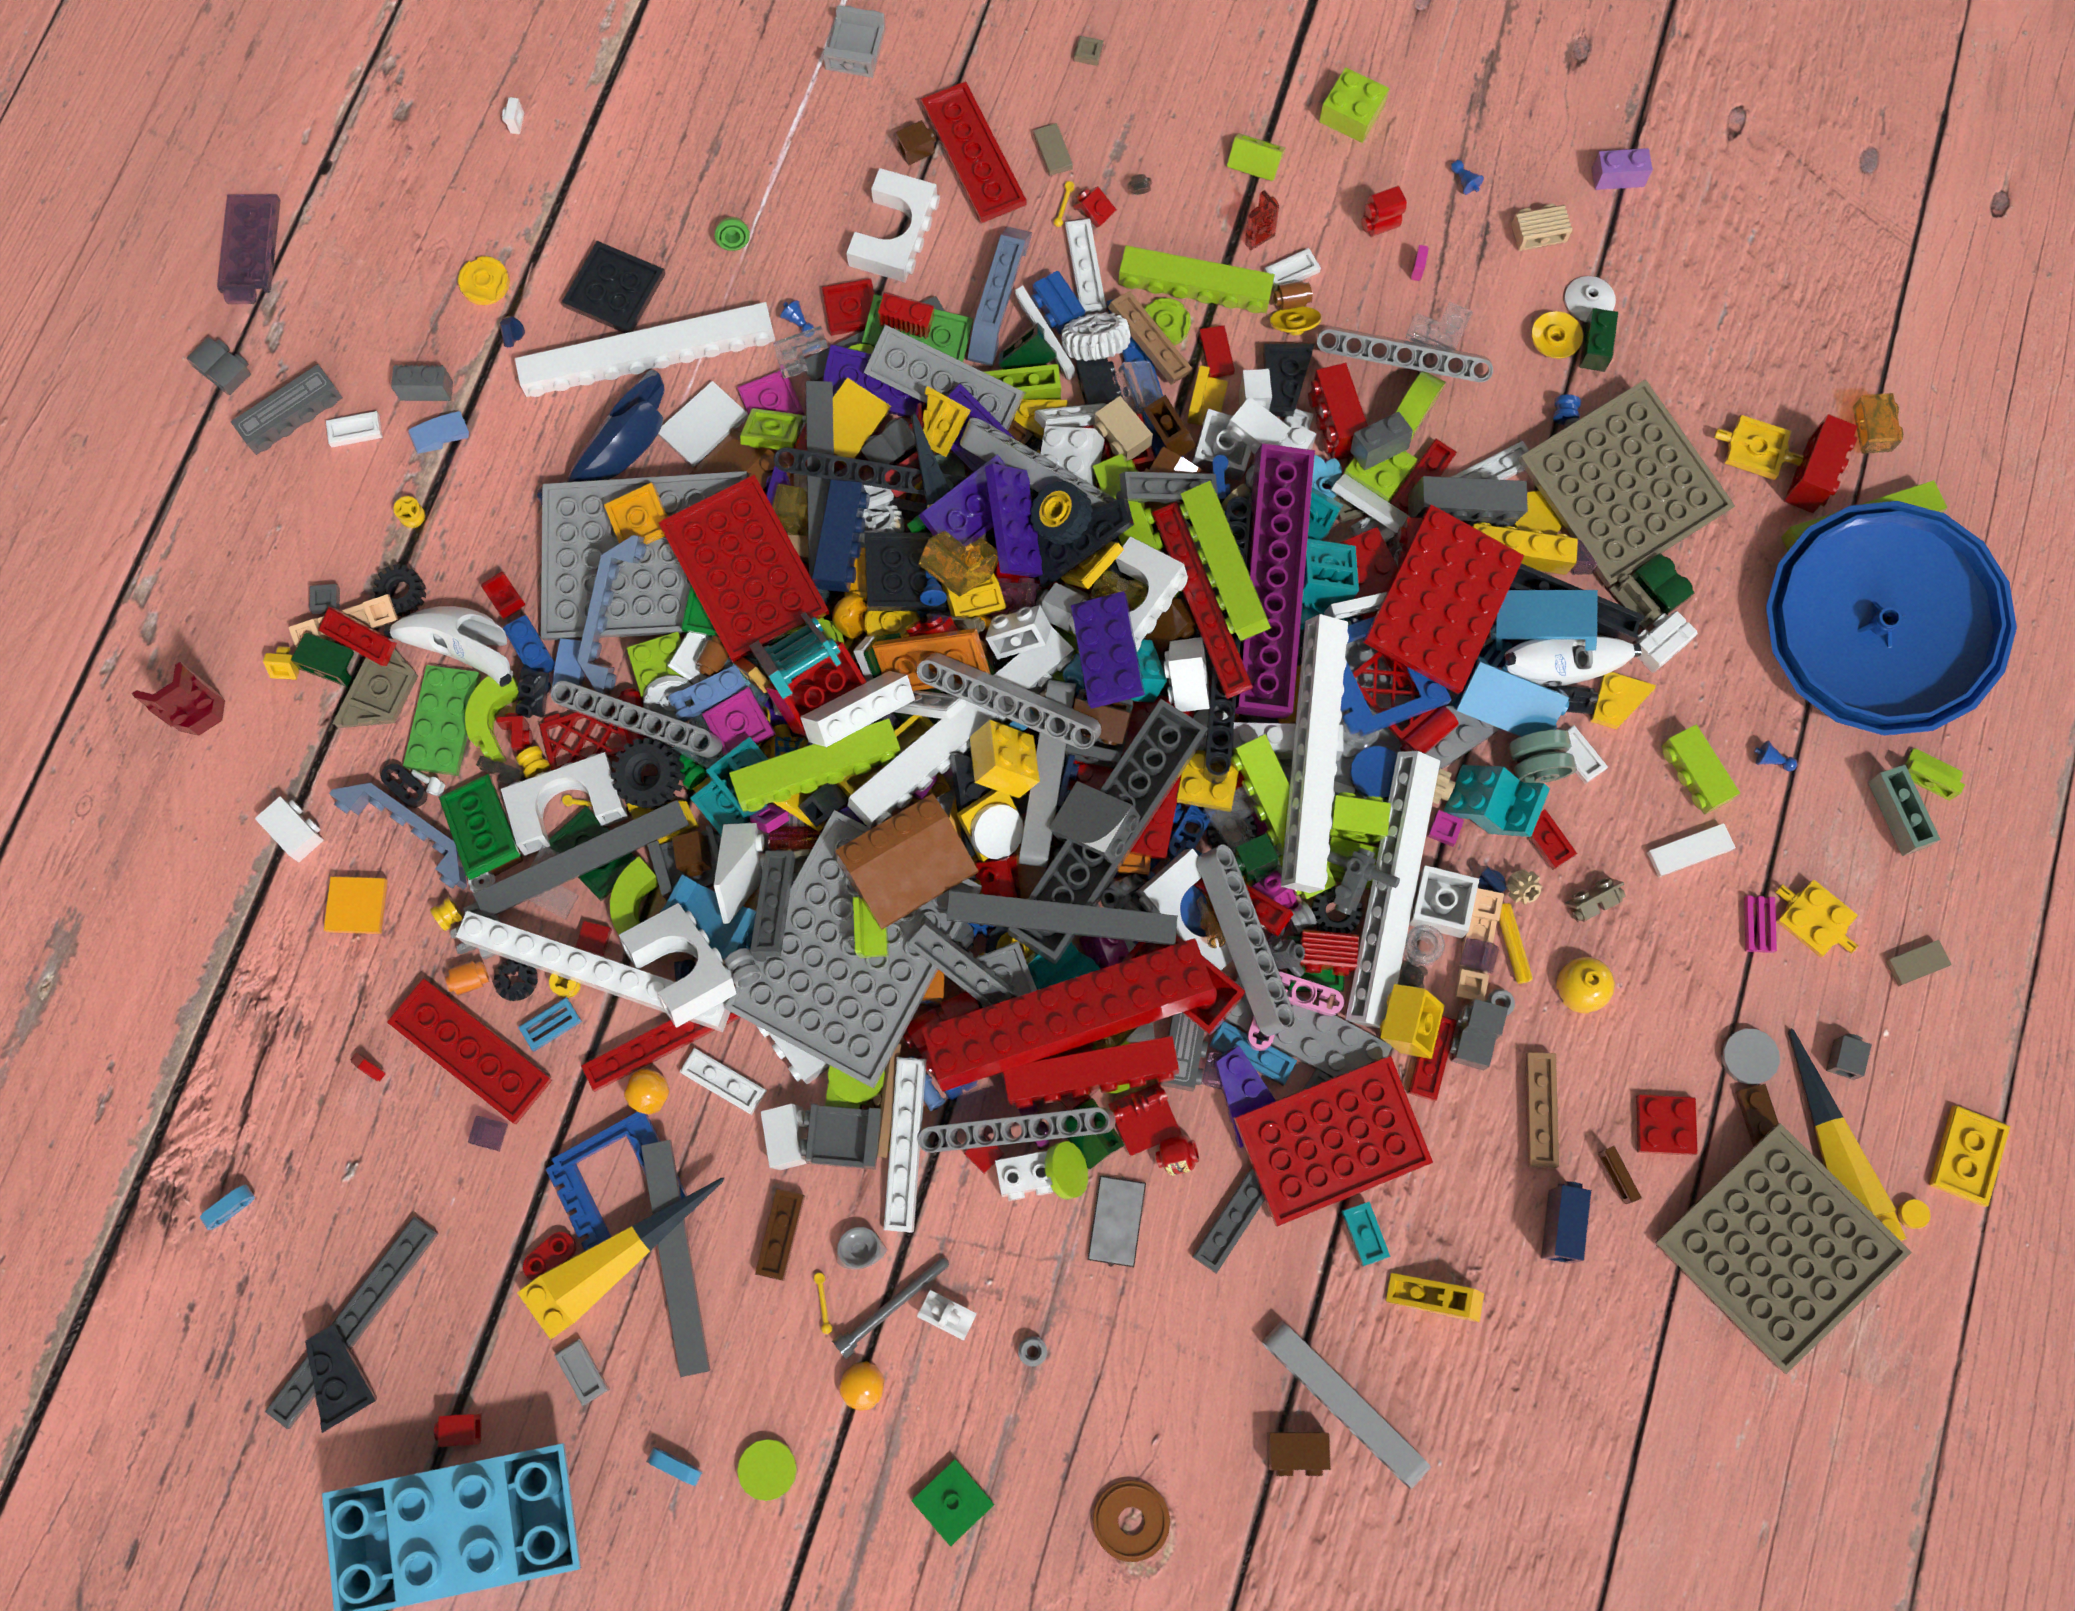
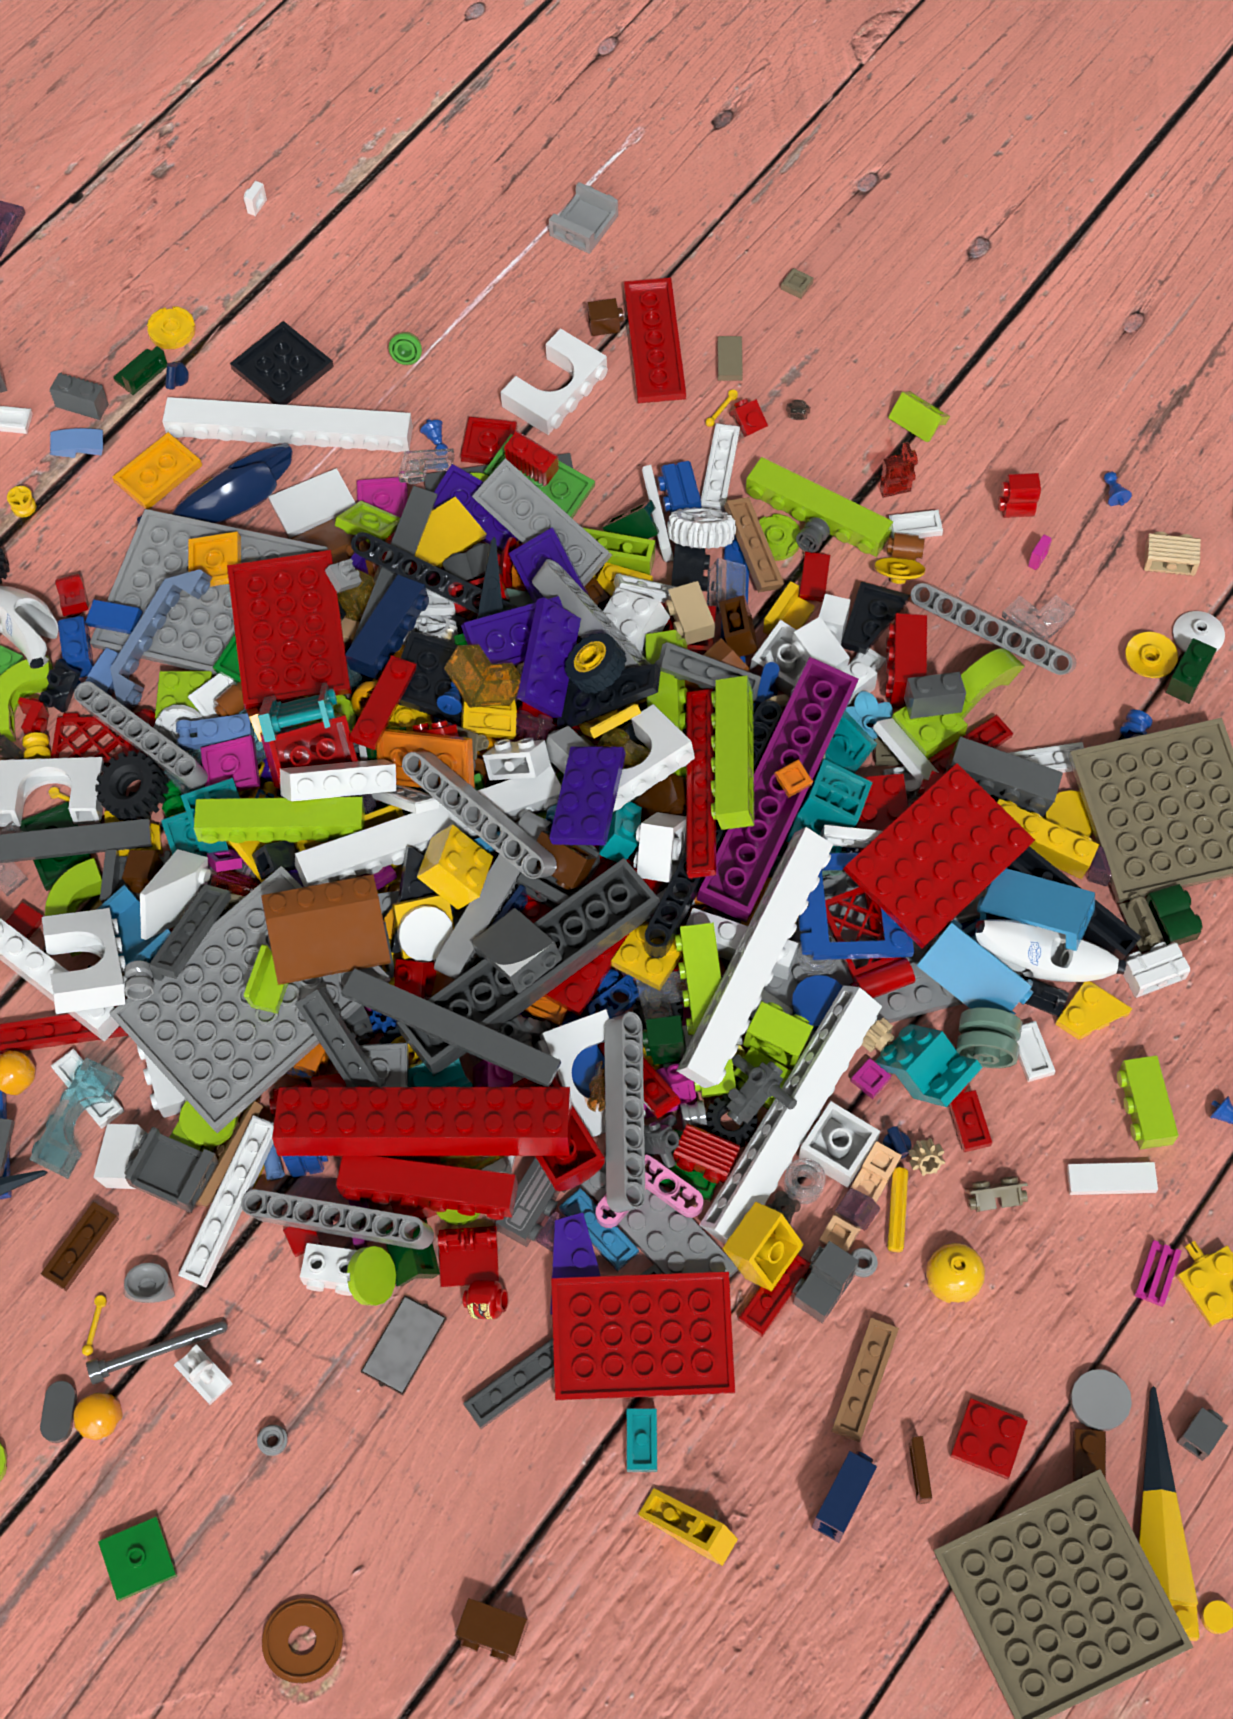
camera: 20 degrees right, 10 degrees down
(472, 335) = (141, 370): none -> dark green panel
(534, 438) = (157, 471): none -> light orange plate
(556, 605) = (113, 616): none -> blue tile
(721, 1151) = (90, 1086): none -> clear light blue arch
(778, 497) = (343, 575): none -> light grey tile
(824, 1395) = (58, 1412): none -> dark grey tile
(870, 616) = (382, 702): none -> red plate
(942, 421) = (523, 557): yellow wing -> none
(996, 295) = (623, 464): sand blue slope -> none
(1202, 310) = (813, 535): none -> dark grey wheel
(1289, 568) = (793, 778): none -> orange tile
(1346, 1405) = (558, 1602): light grey beam -> none
(1354, 105) = (1028, 395): lime brick -> none

